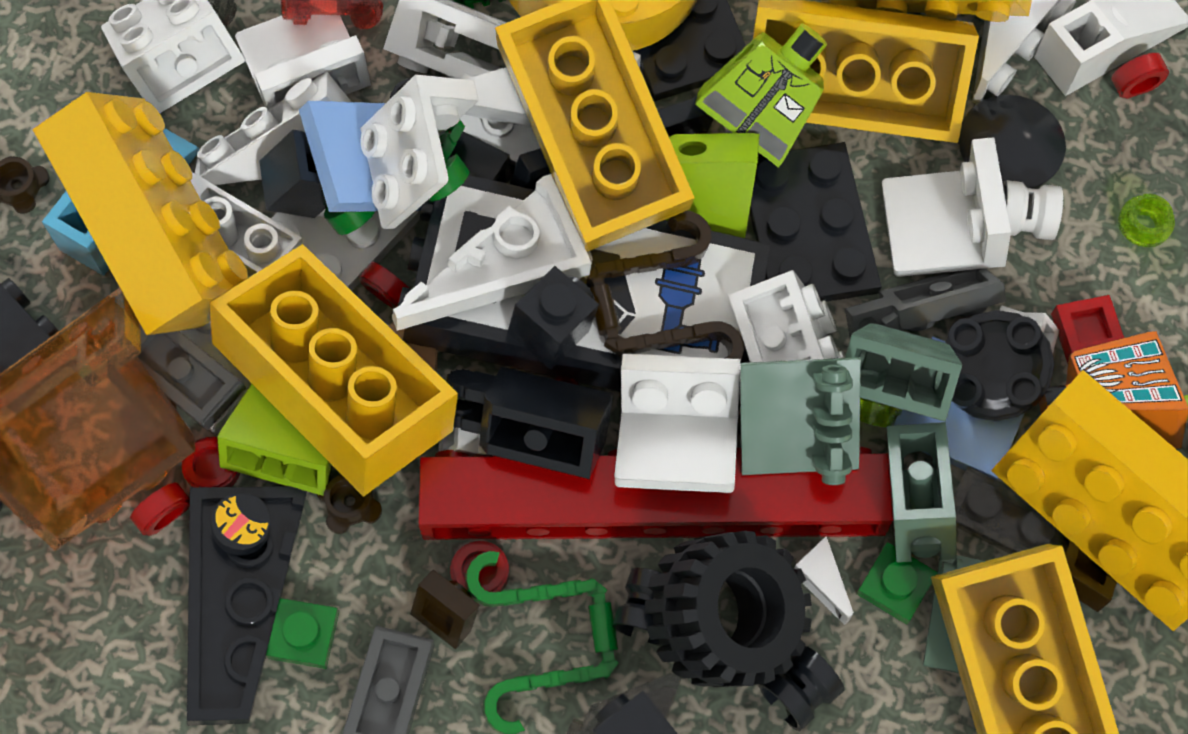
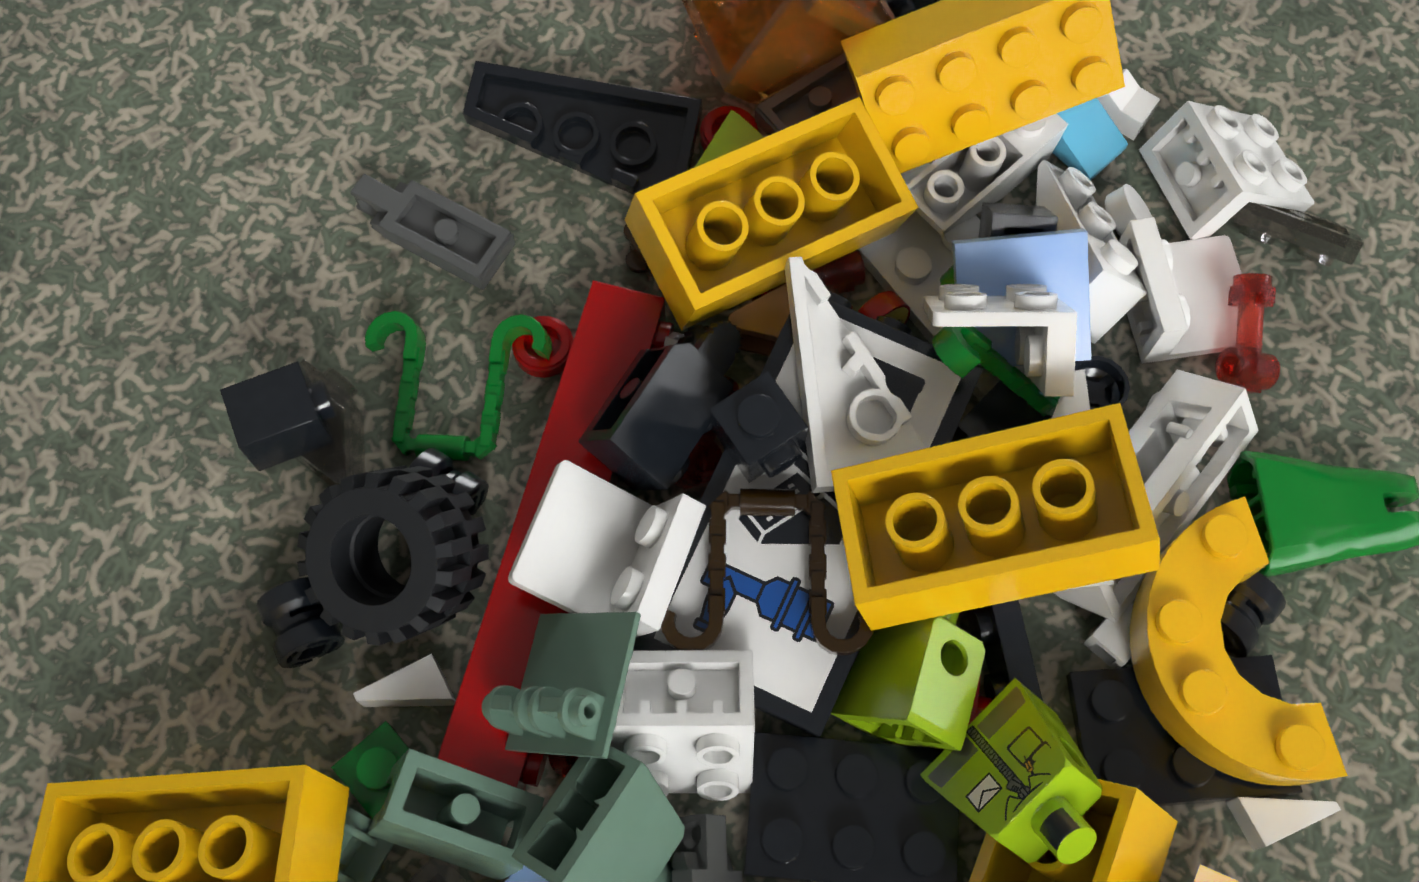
camera: 105 degrees right, 0 degrees up
(160, 509) = (692, 76): red tile -> none
(233, 108) = (1124, 206): none -> white tile
(240, 523) = (649, 132): tile -> none
(302, 633) = (534, 179): green plate -> none
(444, 608) = (509, 297): dark brown plate -> none

